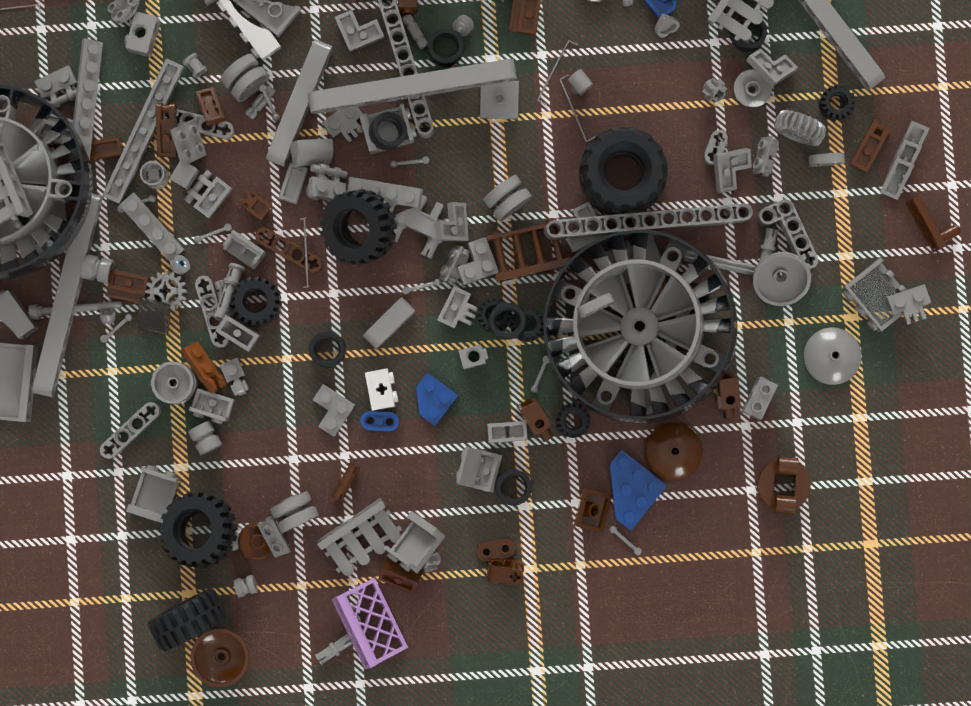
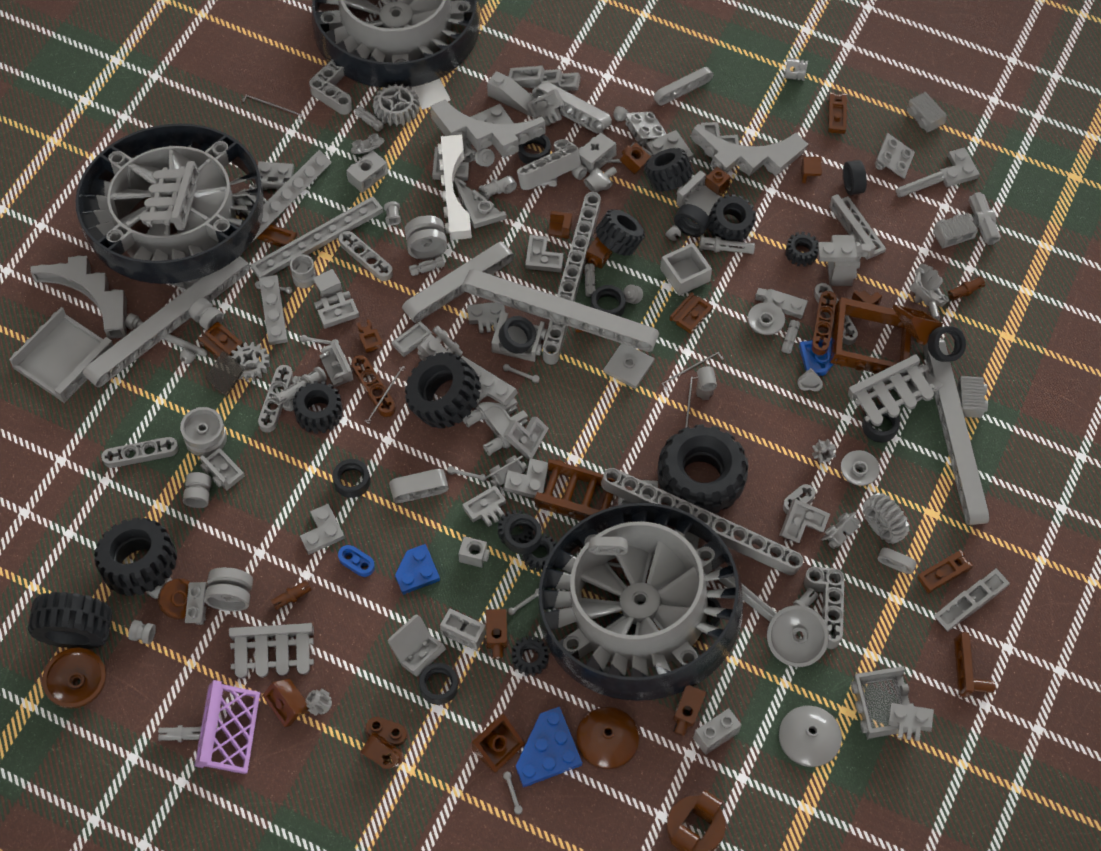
camera: 25 degrees right, 25 degrees down
(104, 338) = (172, 372): light grey hinge -> none
(154, 493) = (121, 507): light grey panel -> none
(165, 142) = (336, 244): reddish brown plate -> none
(179, 264) = (275, 347): light grey tile -> none
(188, 142) = (346, 259): light grey hinge -> none
(203, 367) = (237, 434): dark orange hinge -> none
(210, 106) = (383, 246): reddish brown plate -> none
(233, 372) = (258, 455): light grey plate -> none
(238, 333) = (285, 421): light grey slope -> none
(262, 88) = (435, 253): light grey hinge -> none
(311, 152) = (443, 316): light grey brick -> none
(373, 381) = (374, 534): white brick -> none
(415, 544) = (316, 679): light grey panel -> none
(507, 197) = (586, 437): light grey wheel -> none
(771, 70) = (884, 460): light grey plate -> none
(839, 91) = (936, 510): black tyre -> none

